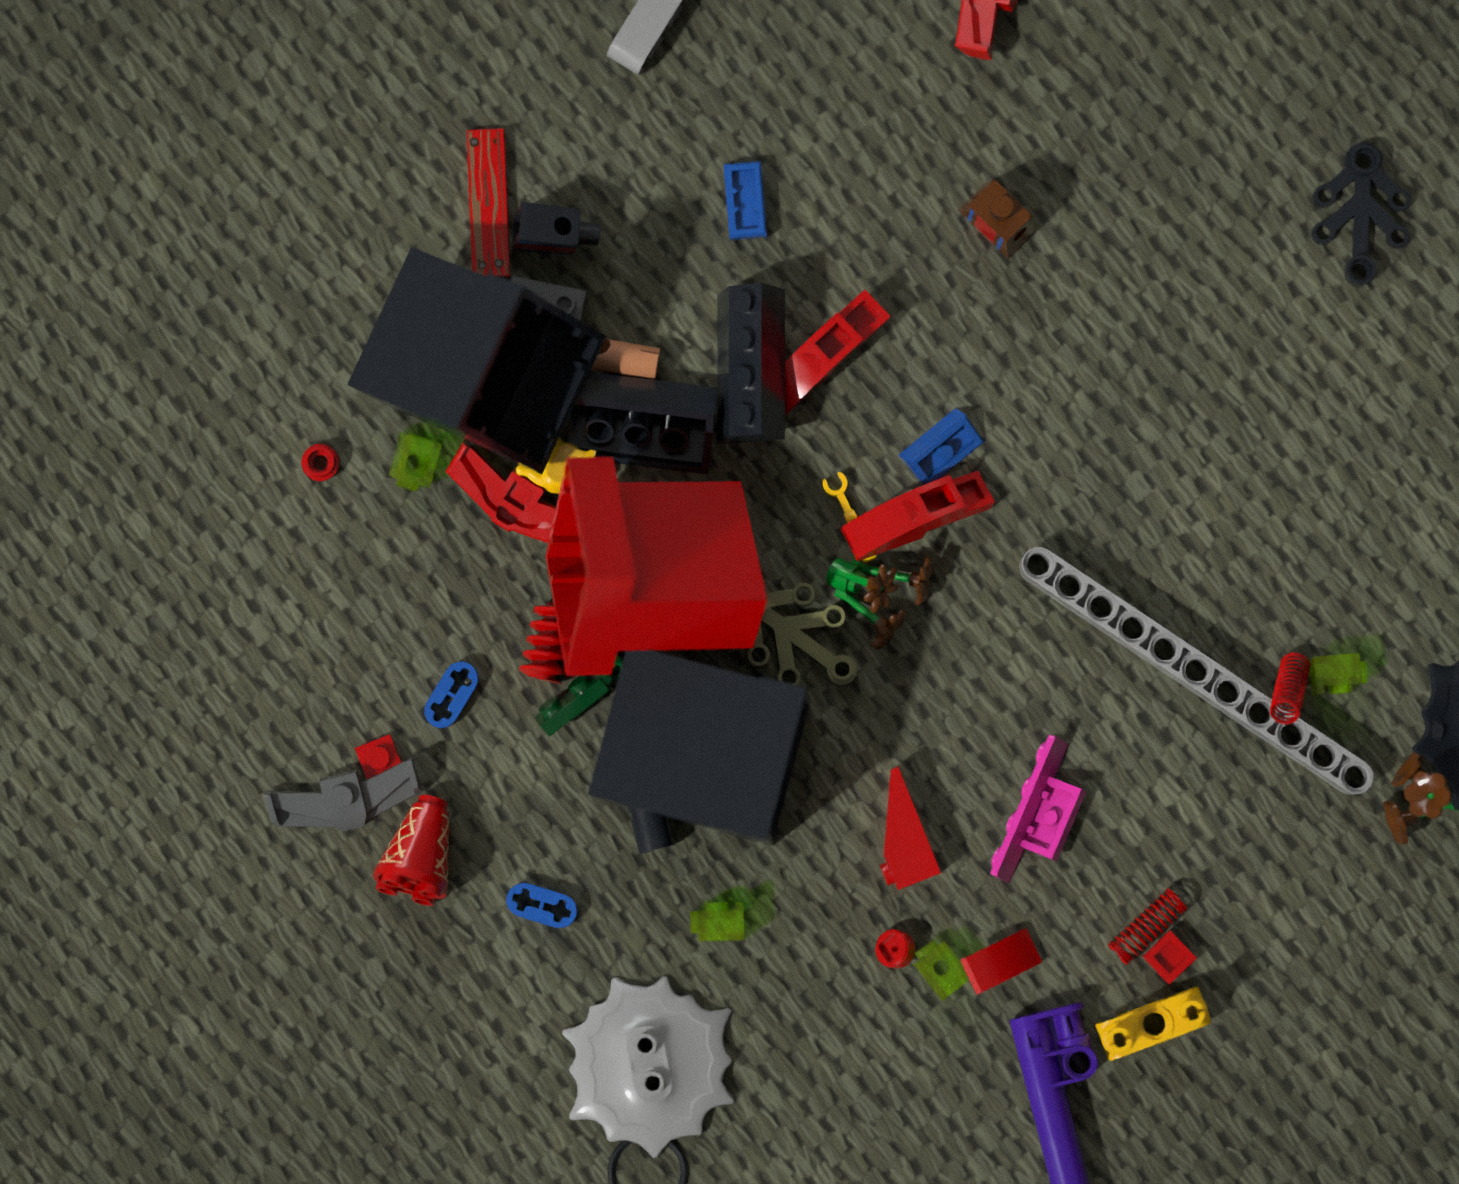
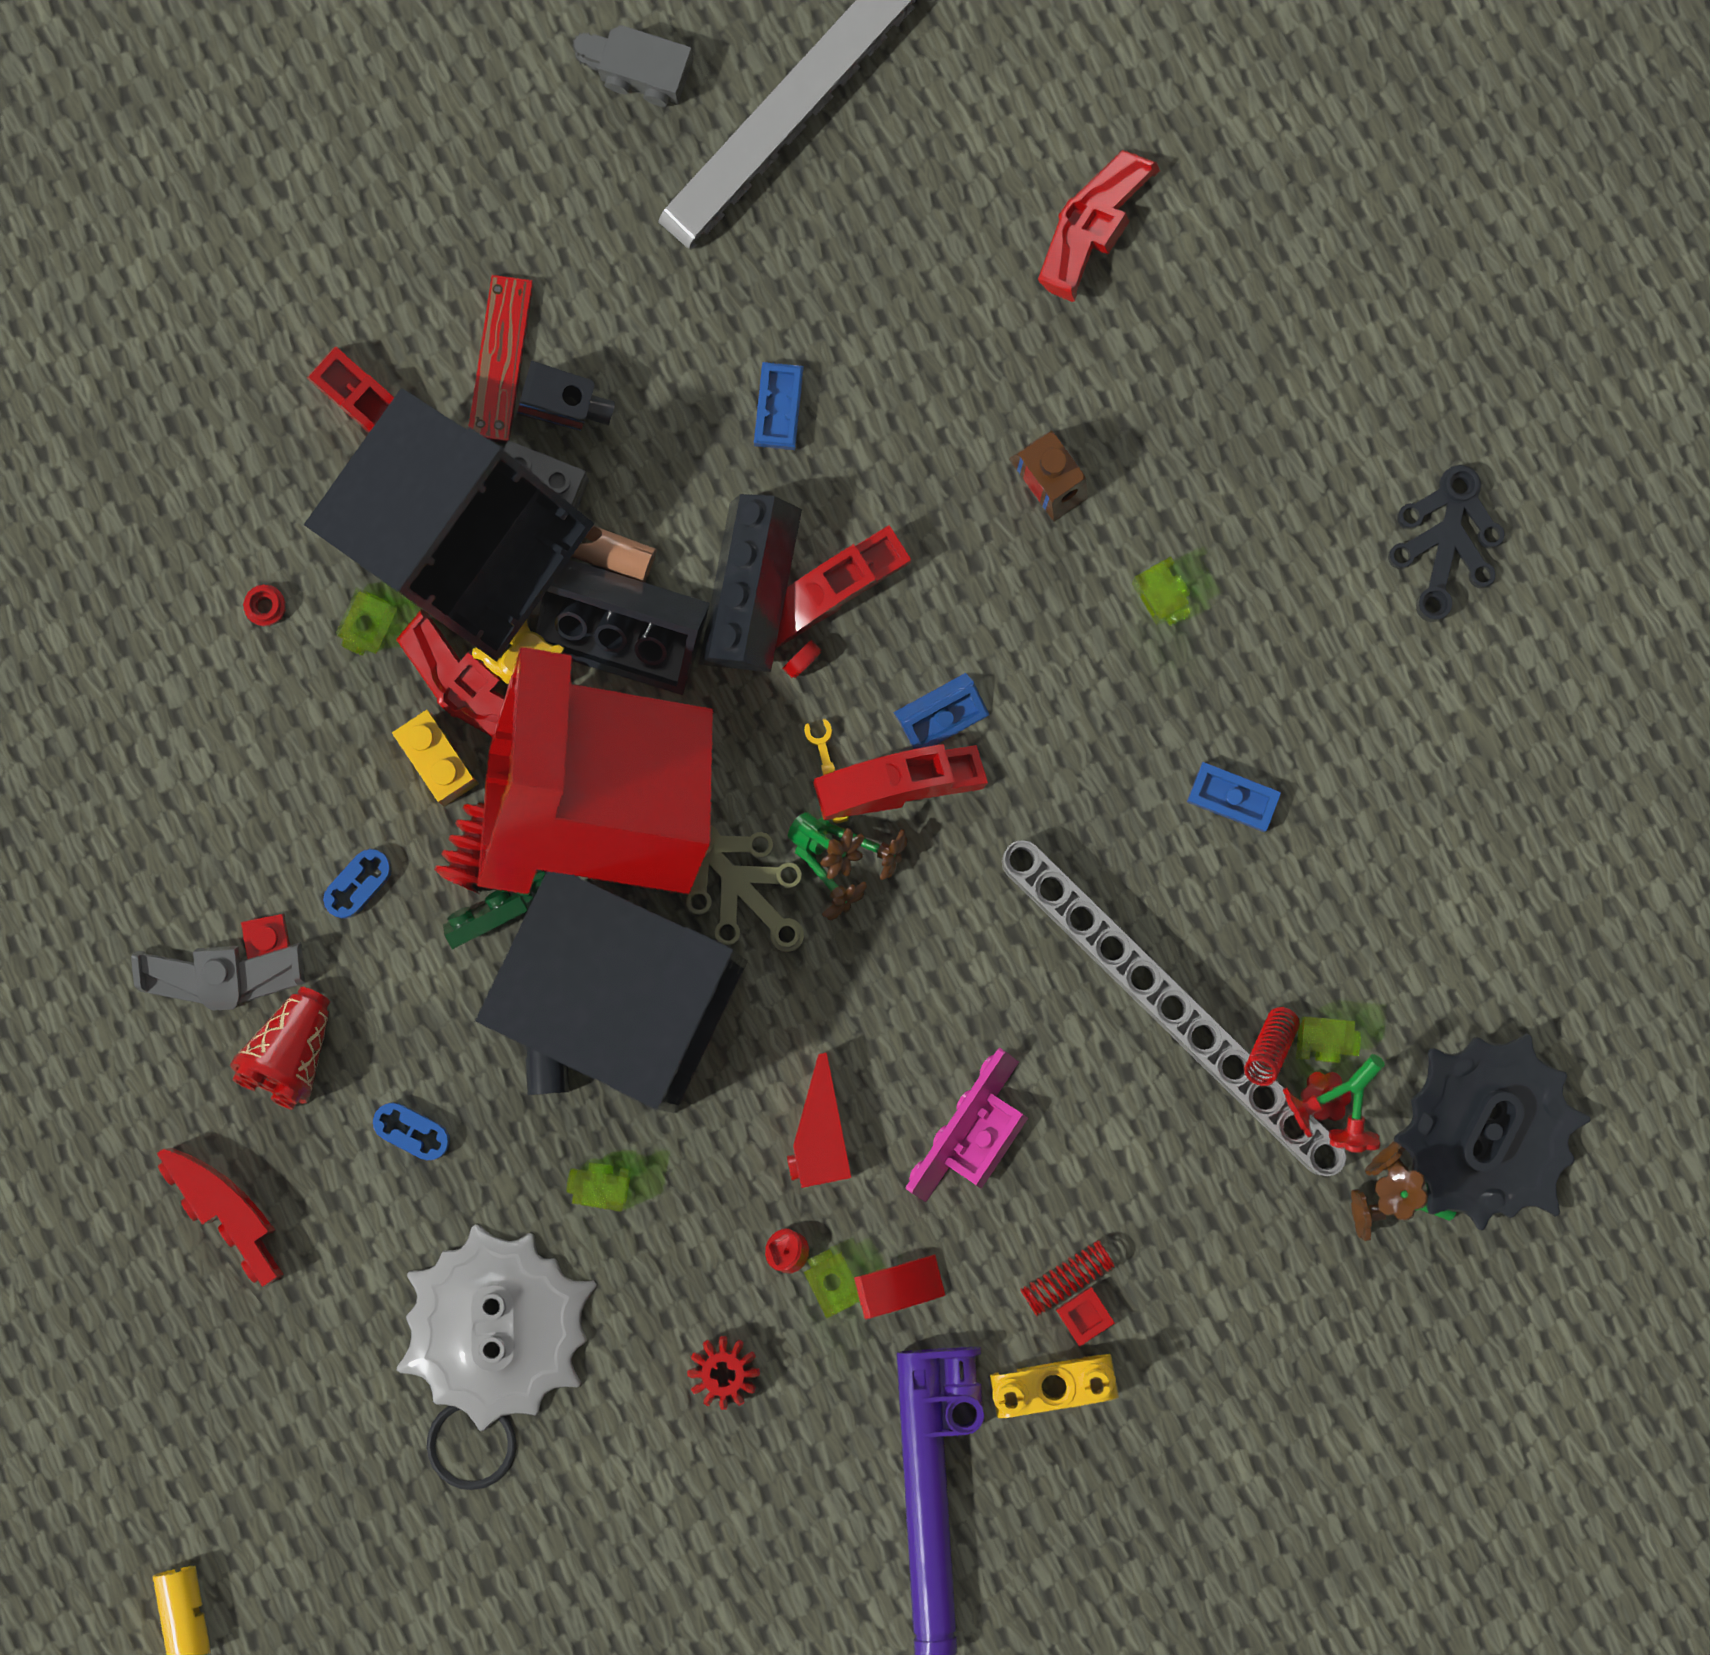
camera: 10 degrees right, 0 degrees up
(362, 256) = (351, 388): none -> red slope
(377, 995) = (215, 1196): none -> red slope
(500, 570) = (435, 758): none -> yellow brick
(809, 422) = (802, 659): none -> red tile
(852, 1076) = (712, 1382): none -> red gear
(1118, 305) = (1163, 593): none -> clear neon green brick
(1214, 474) = (1233, 797): none -> blue plate
(1346, 725) = (1327, 1098): none -> red plant

